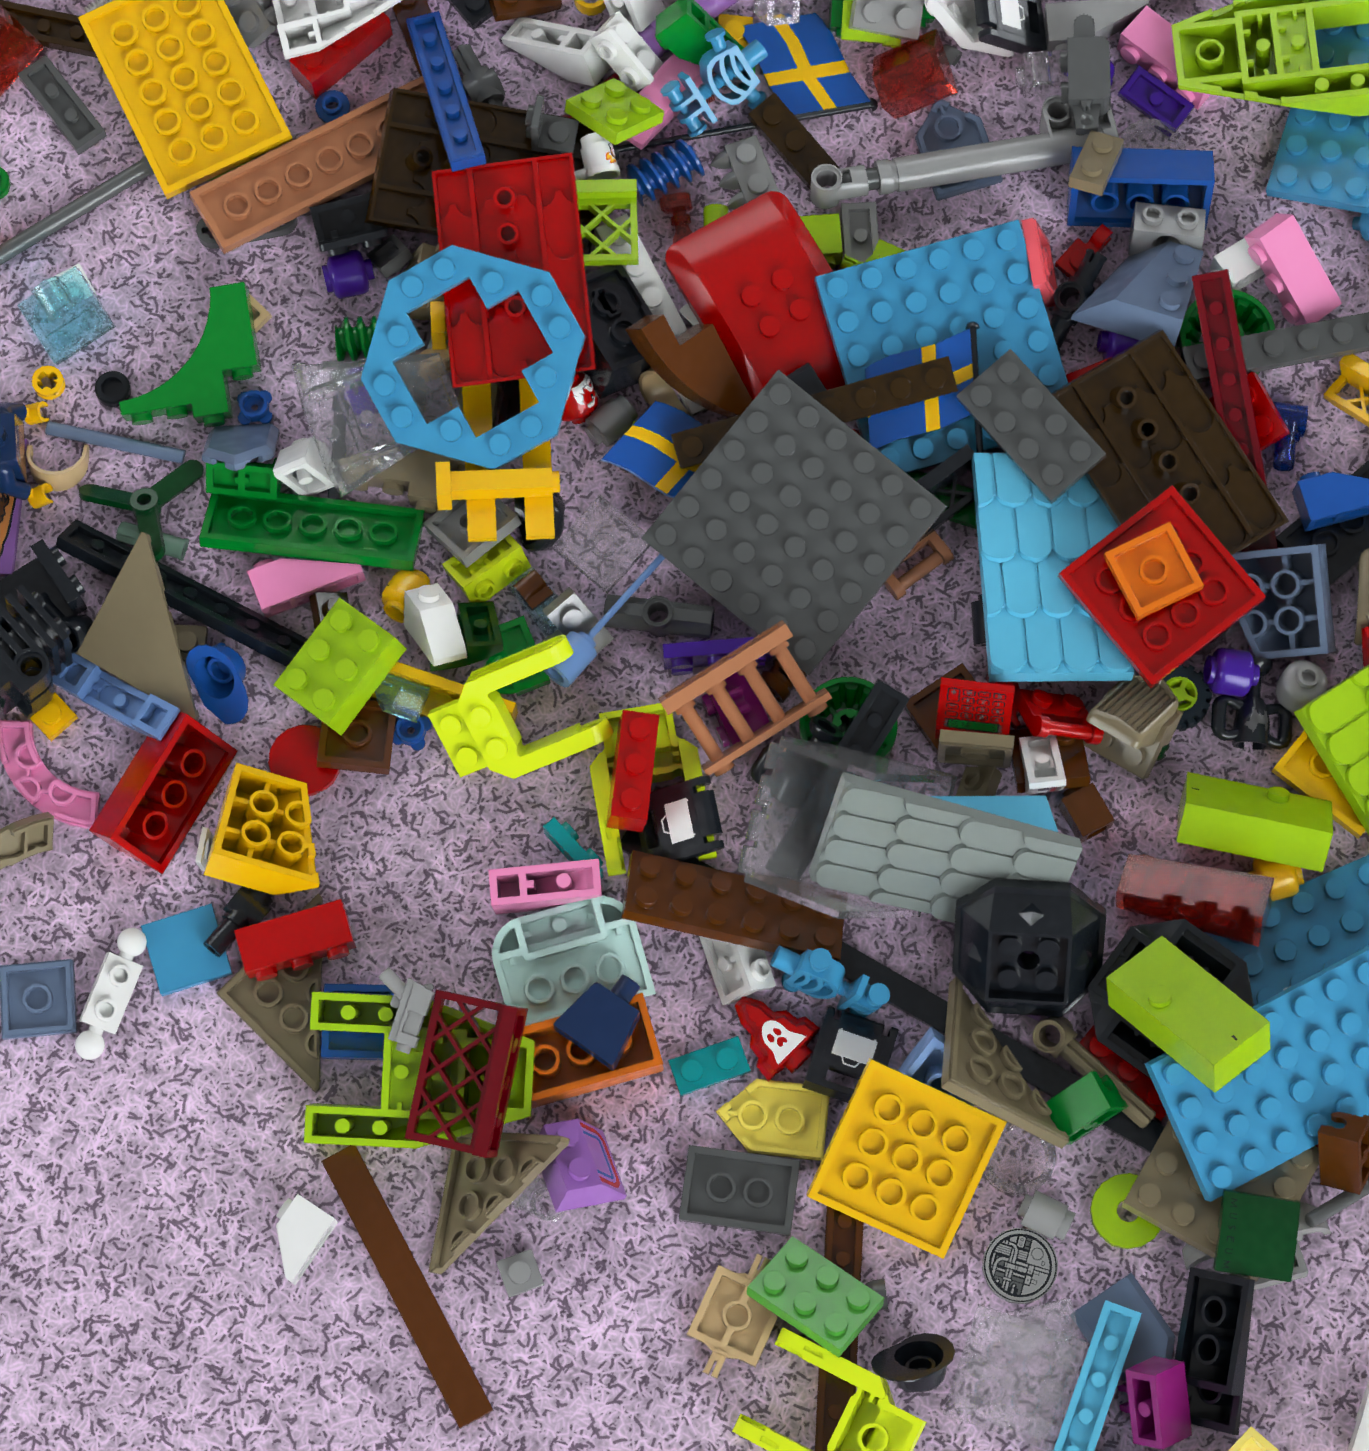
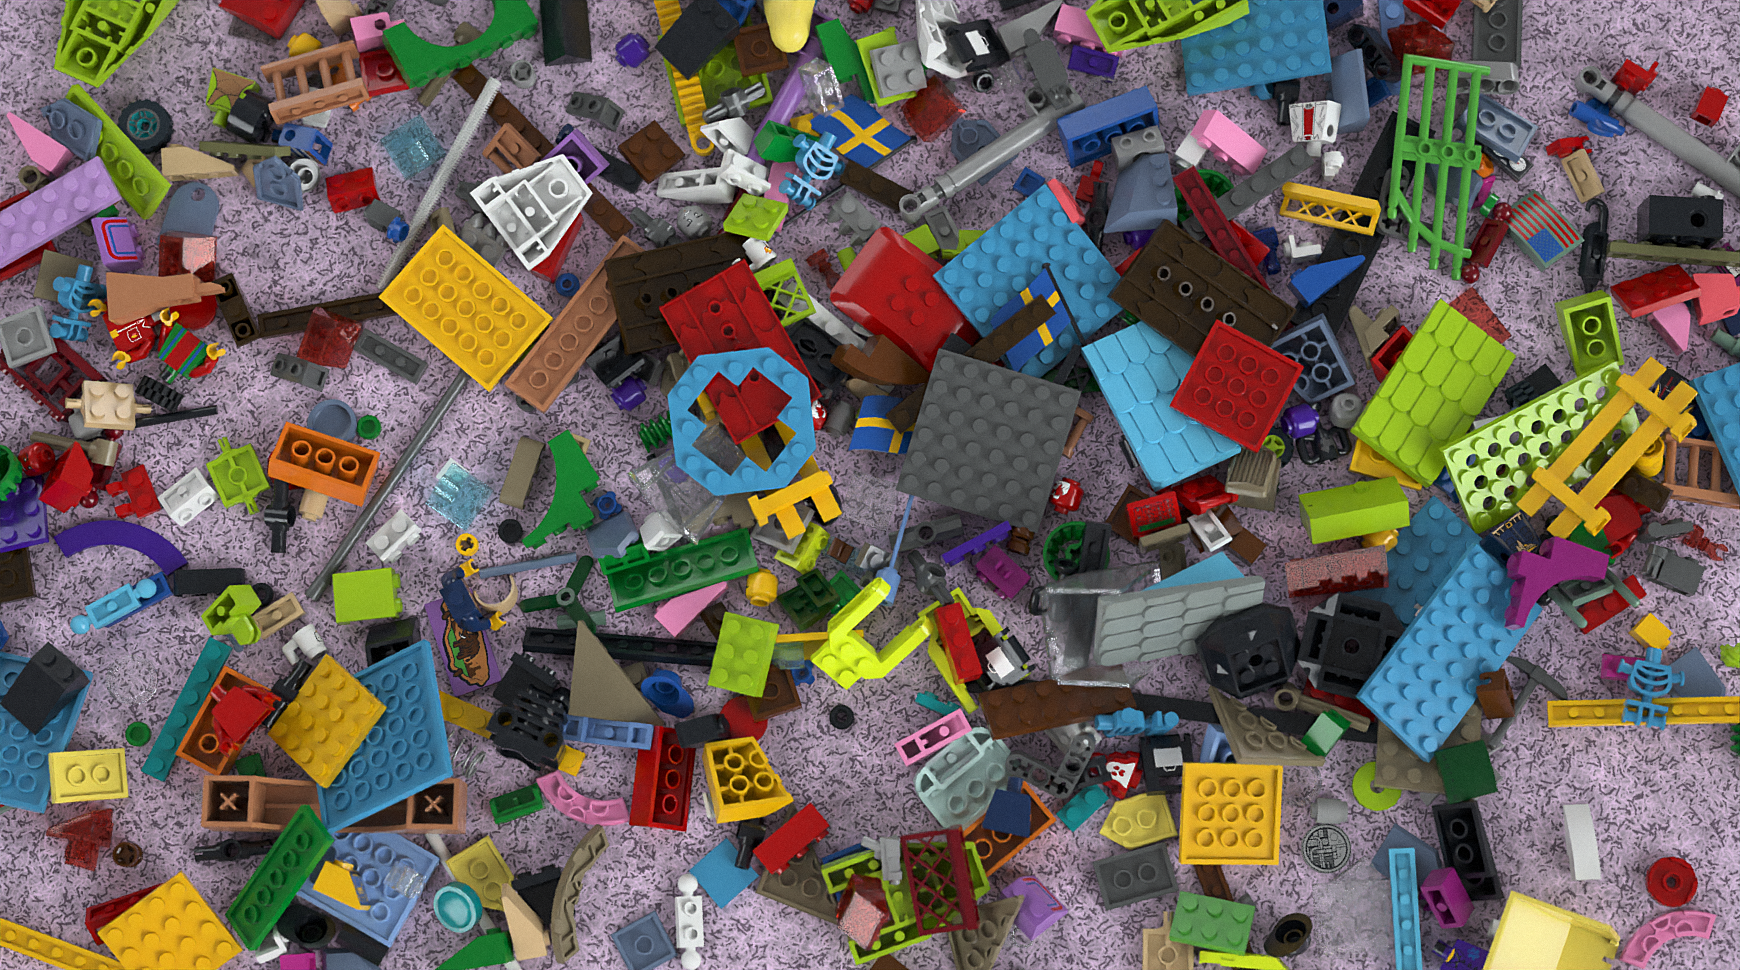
camera: 20 degrees left, 5 degrees up
(160, 318) = (521, 472): none -> dark tan beam
(241, 743) = (702, 730): none -> black slope
(343, 1067) = (862, 910): none -> clear red slope
(433, 800) = (841, 709): none -> black plate
(434, 624) = (790, 601): white slope -> none
(446, 91) = (641, 248): blue tile -> none
(530, 83) = (694, 222): none -> light grey head
(549, 132) = (722, 247): dark grey bracket -> none
(637, 674) = (930, 578): none -> dark grey axle
(664, 169) = (801, 239): blue piece -> none
(696, 1005) = (1061, 774): none -> dark grey beam
(721, 1019) = (1086, 778): none -> black plate
(744, 663) = (983, 566): nougat fence -> none
(869, 644) = (1066, 495): none -> red head
(998, 213) = (1028, 182): none -> blue plate
(1003, 71) = (988, 81): none -> black plate
(1031, 426) = (1111, 316): dark grey plate -> none
(1096, 163) = (1078, 125): dark tan plate -> none
(1153, 570) = (1229, 380): orange plate -> none
(1188, 1013) = (1370, 654): lime brick -> none
(1332, 458) = (1302, 253): none -> white bracket

